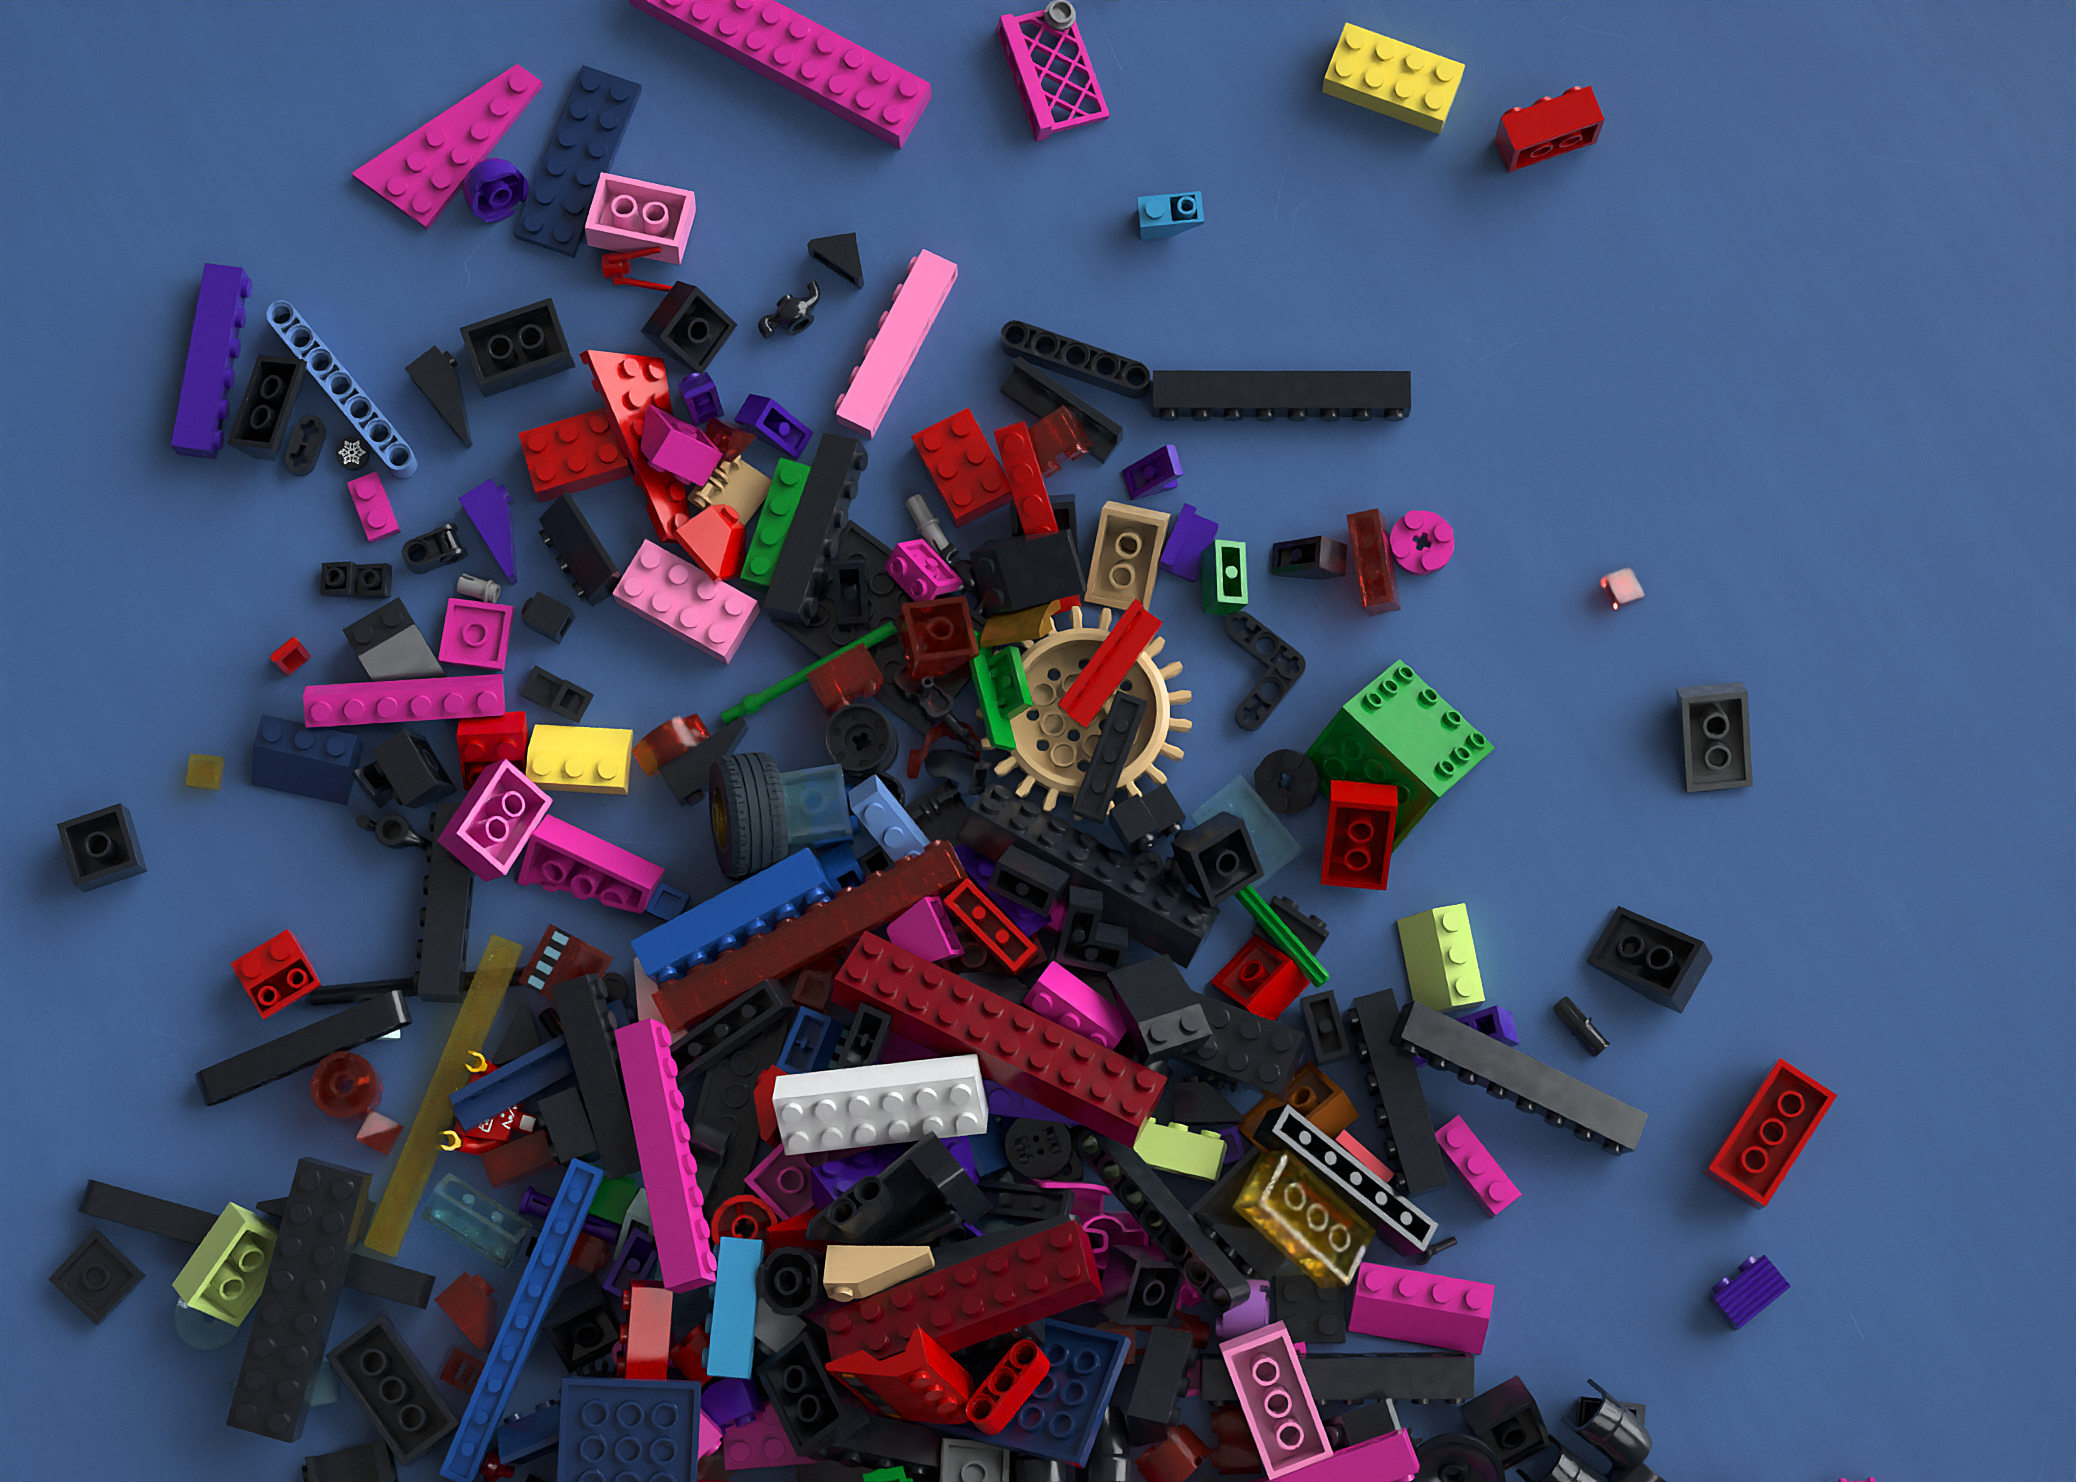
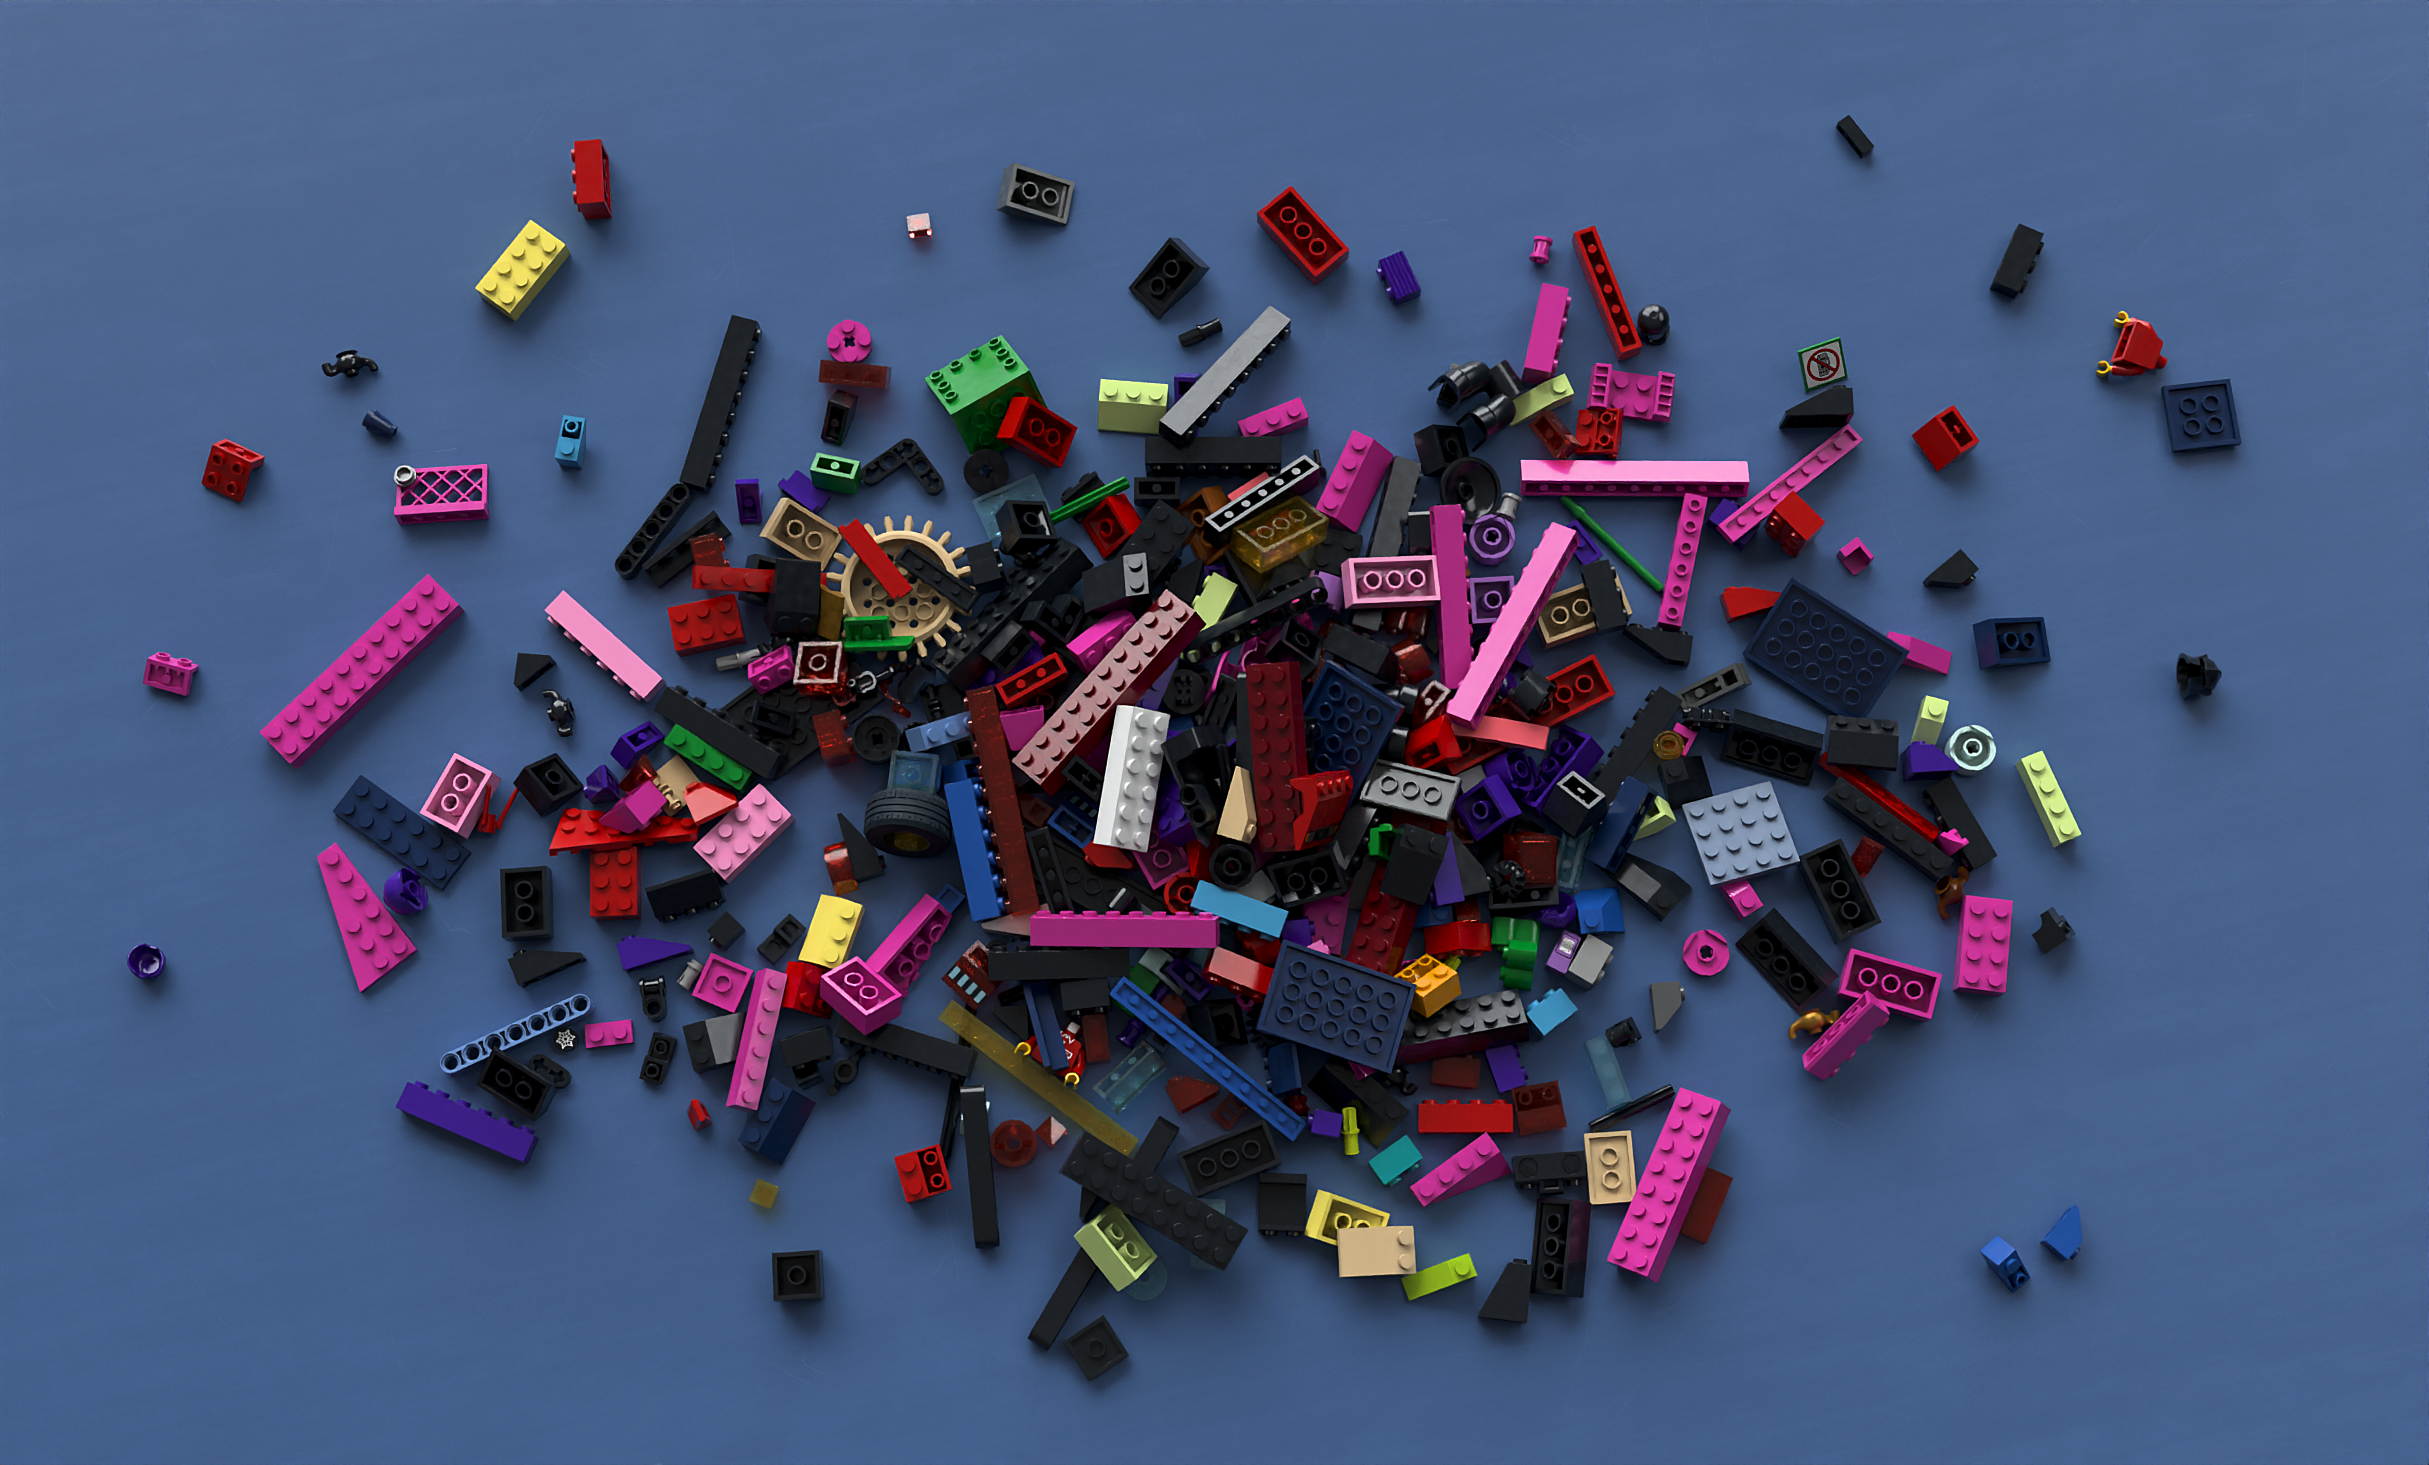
camera: 75 degrees left, 0 degrees up
(753, 703) = (827, 807): green bar -> none
(1002, 1403) = (1328, 742): red beam -> none

